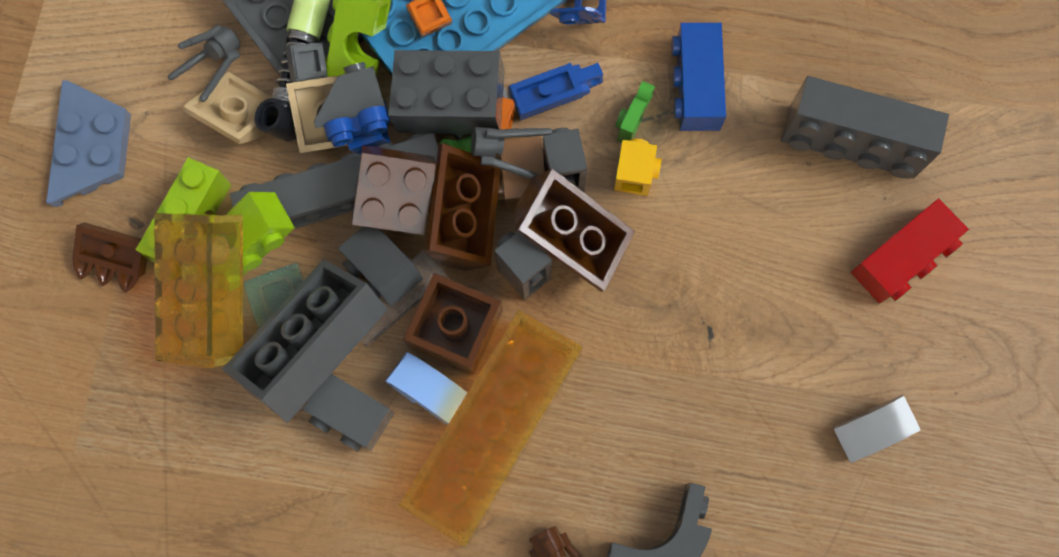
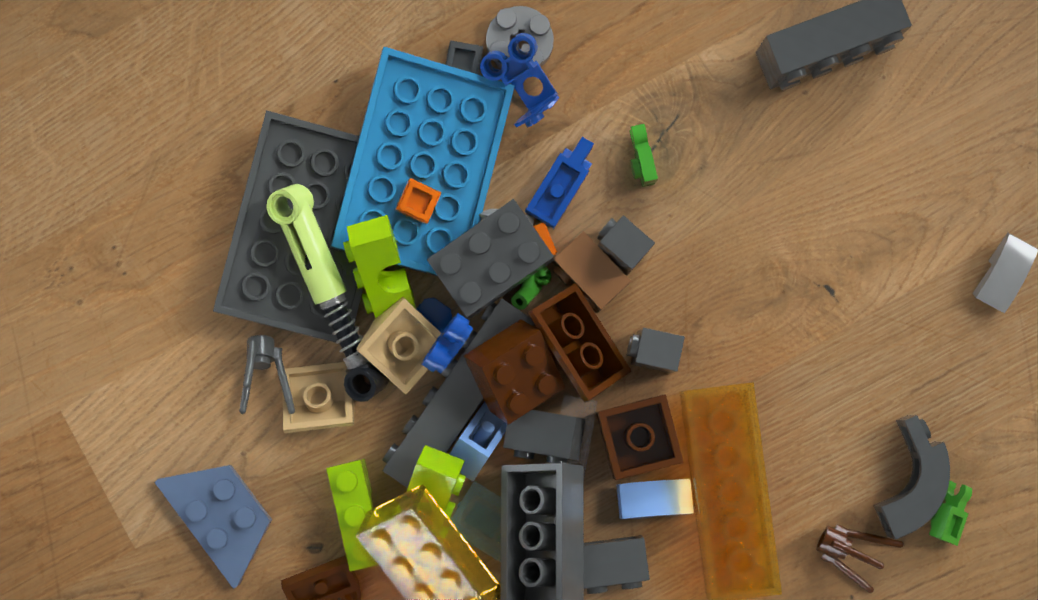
camera: 40 degrees left, 10 degrees up
(306, 61) = (356, 319): dark grey tile -> none
(320, 232) = (478, 441): none -> light blue slope
(351, 94) = (420, 323): dark grey slope -> none
(490, 141) = (561, 279): dark grey plant -> none
(572, 228) = (675, 298): reddish brown slope -> none
(637, 167) = (678, 200): yellow brick -> none
(699, 77) = (669, 86): blue brick -> none
(910, 252) = (936, 112): red brick -> none

